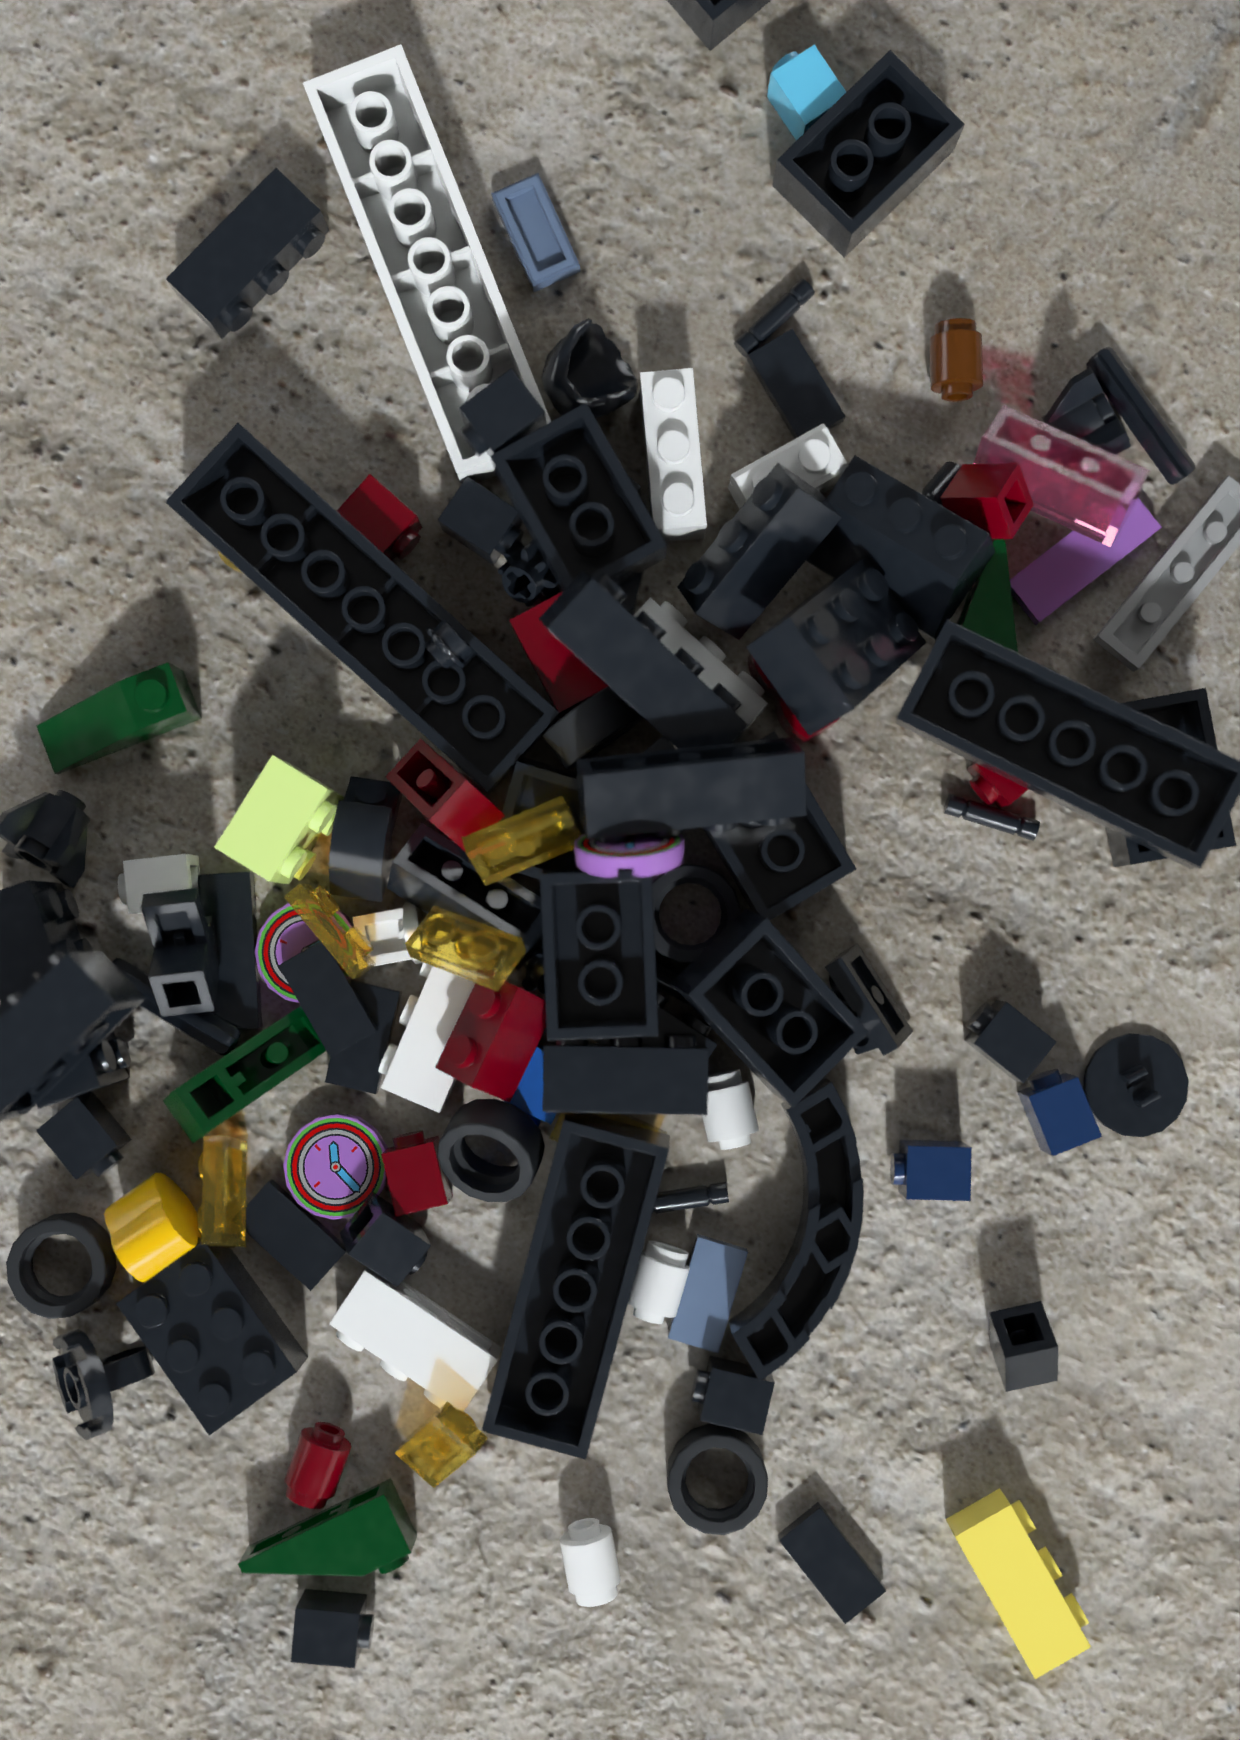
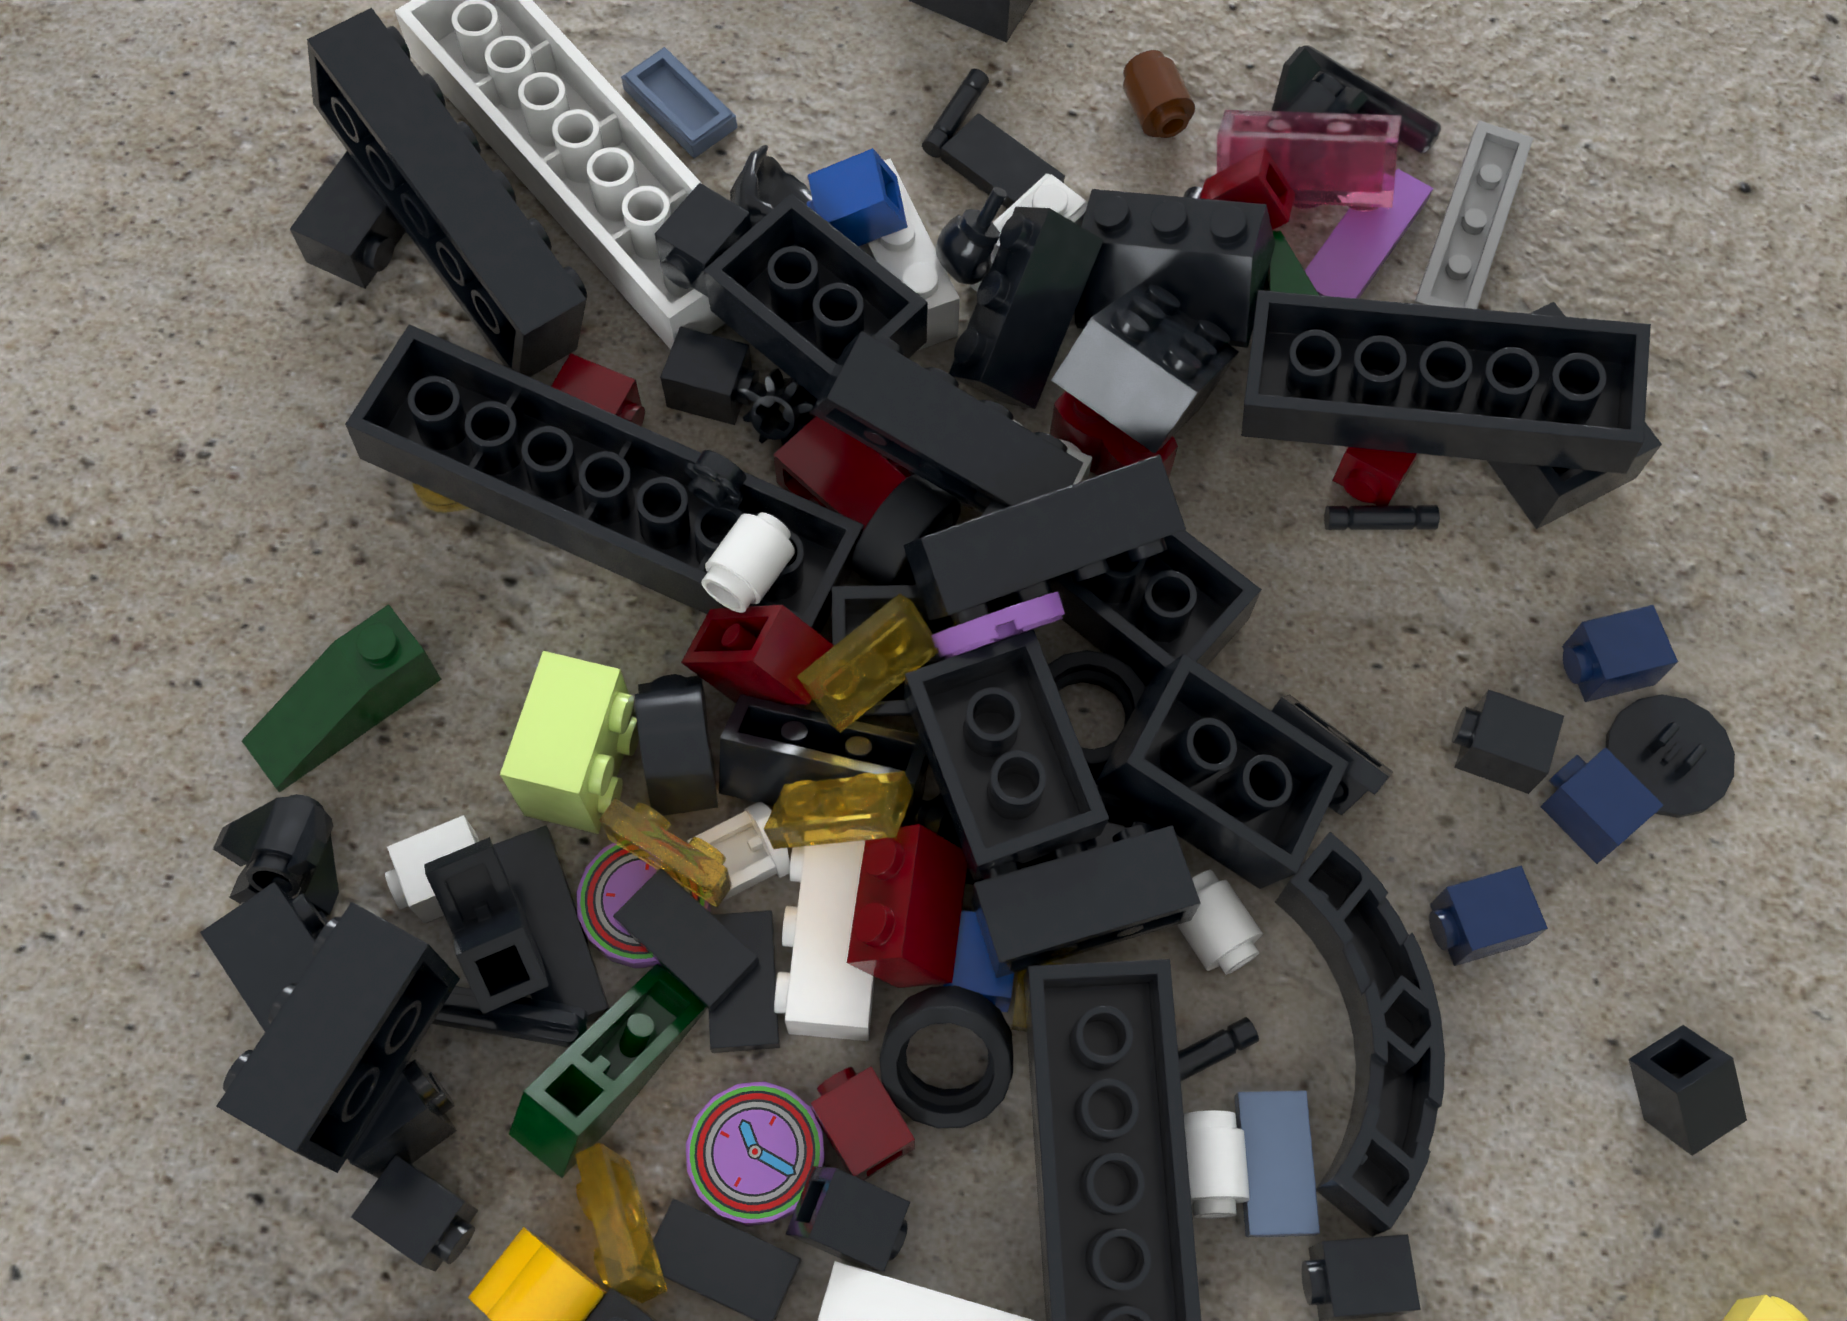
camera: 25 degrees left, 20 degrees down
(296, 293) = (446, 193): none -> black brick
(453, 727) = (748, 561): none -> white brick
(644, 414) = (859, 197): none -> blue brick
(729, 481) = (969, 239): none -> black piece
(1127, 997) = (1618, 653): none -> dark blue brick

